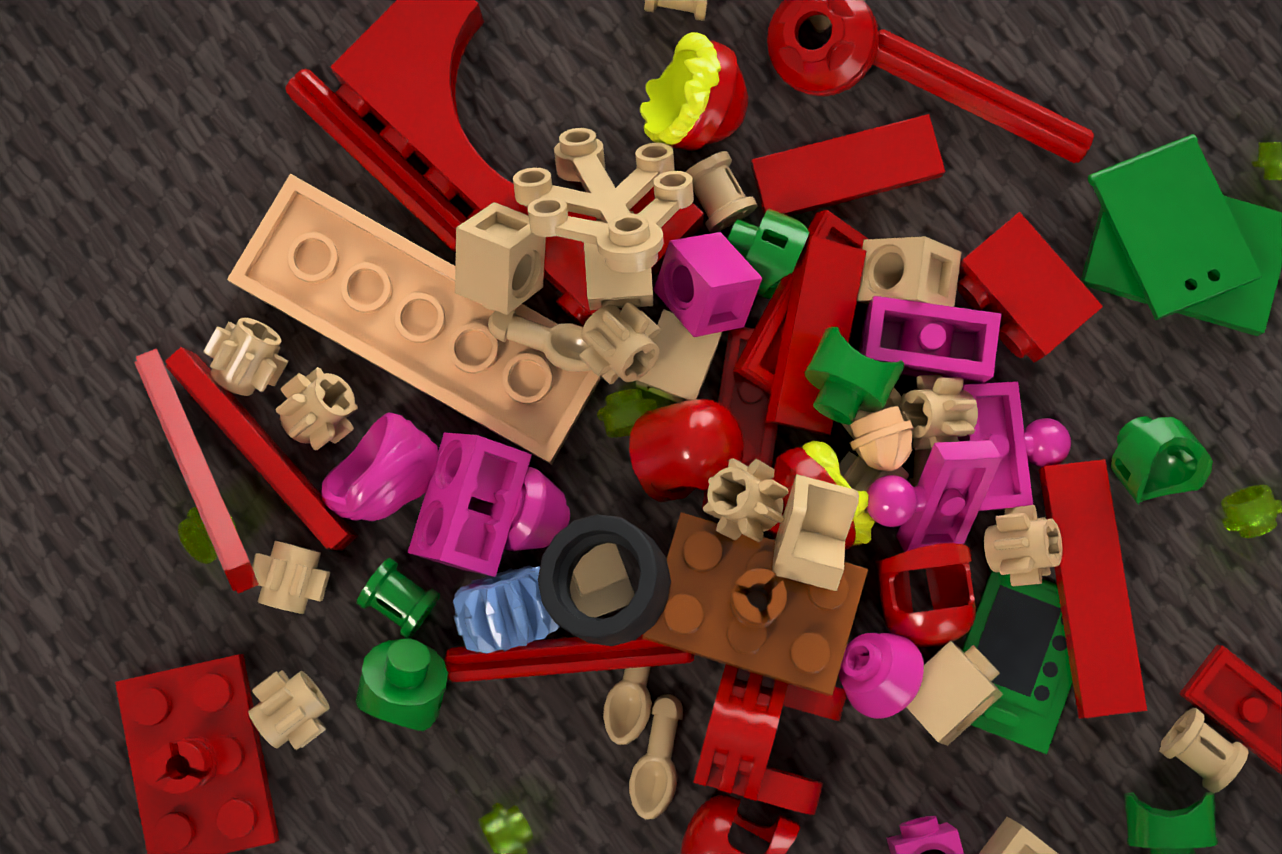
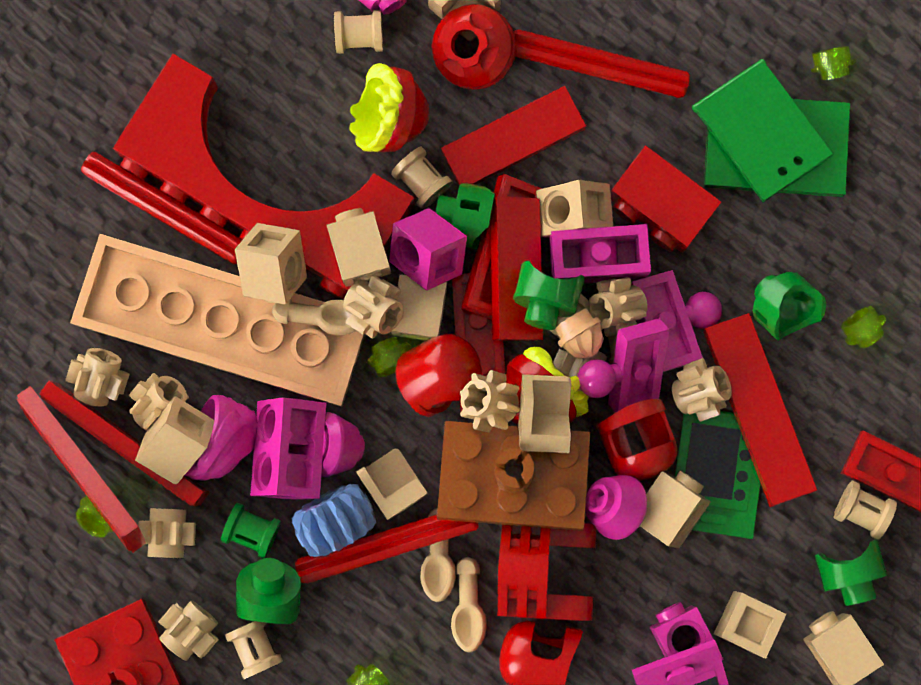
camera: 15 degrees left, 0 degrees up
(325, 460) = (175, 440): none -> tan panel
(360, 769) = (252, 664): none -> tan bush
(564, 555) = (367, 470): black tyre -> none
(624, 238) = (360, 231): tan plant -> none

